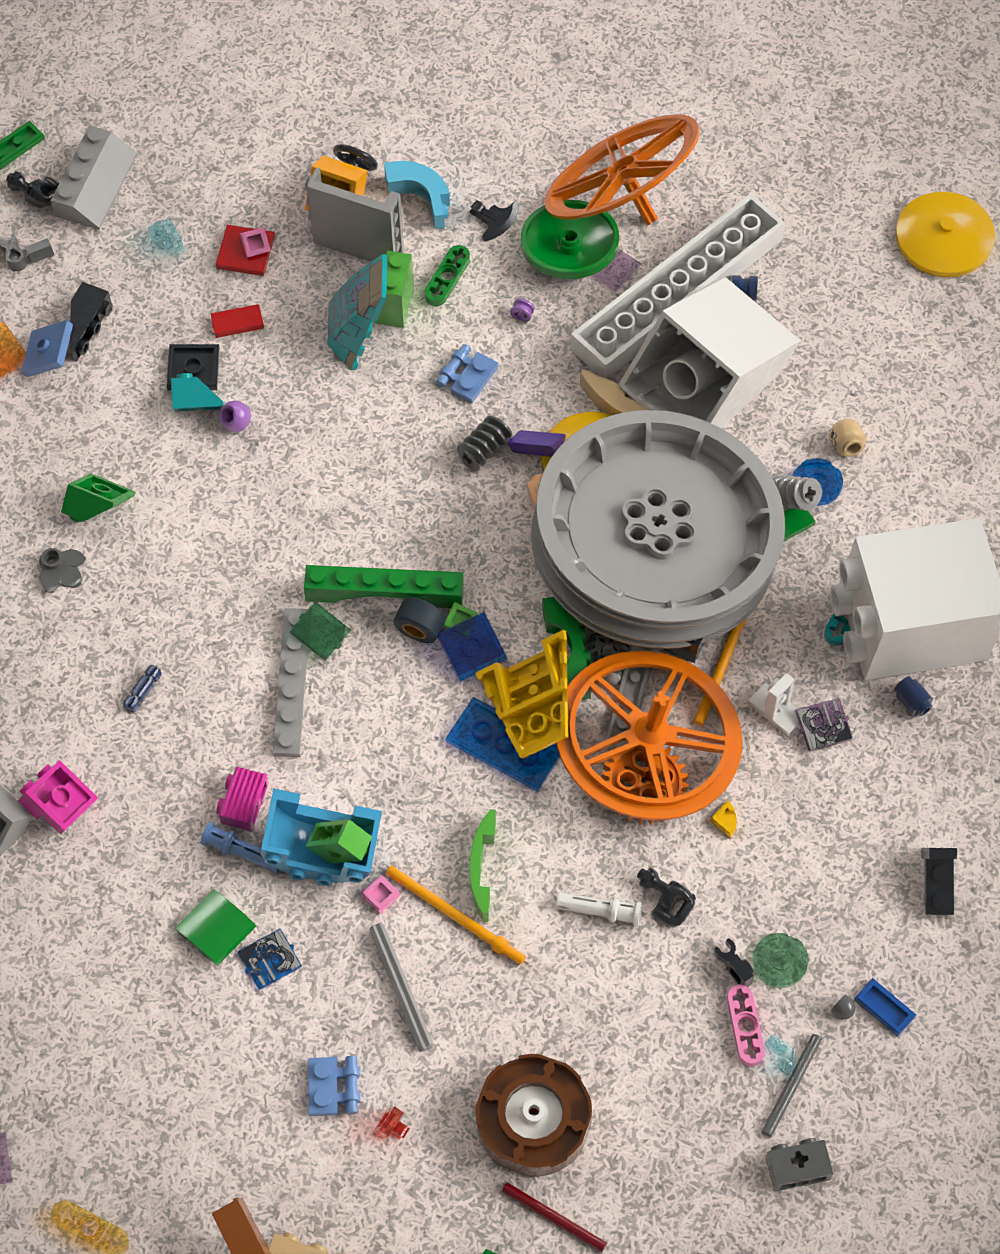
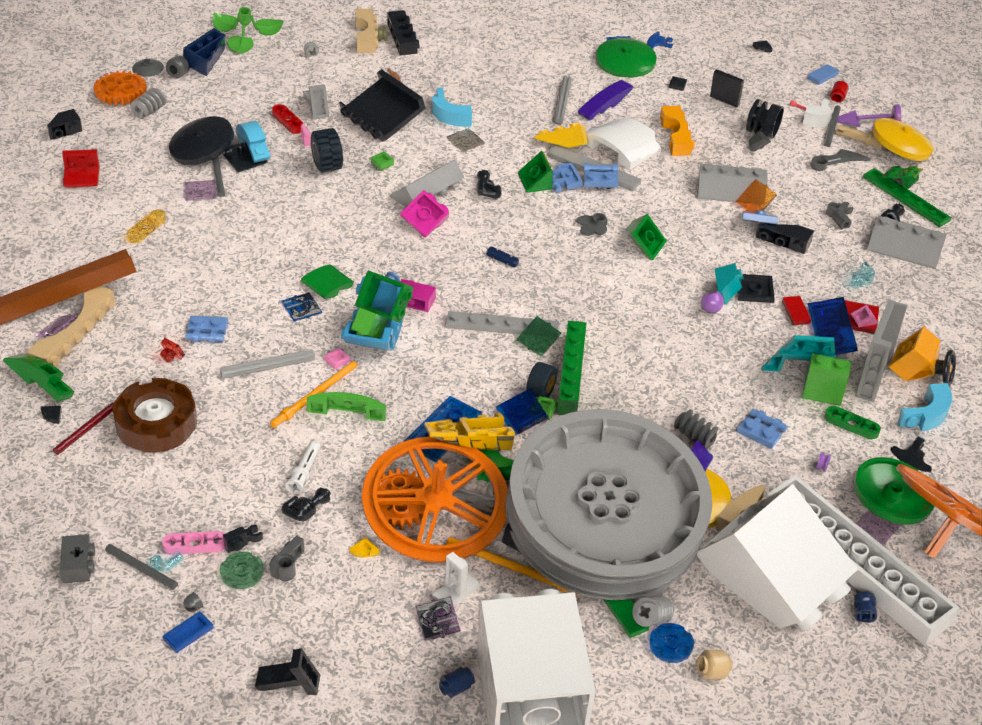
camera: 90 degrees right, 20 degrees down
(273, 280) = (832, 319): none -> clear blue tile
(324, 824) = (369, 290): none -> green window
(749, 900) = (283, 565): none -> dark grey plate

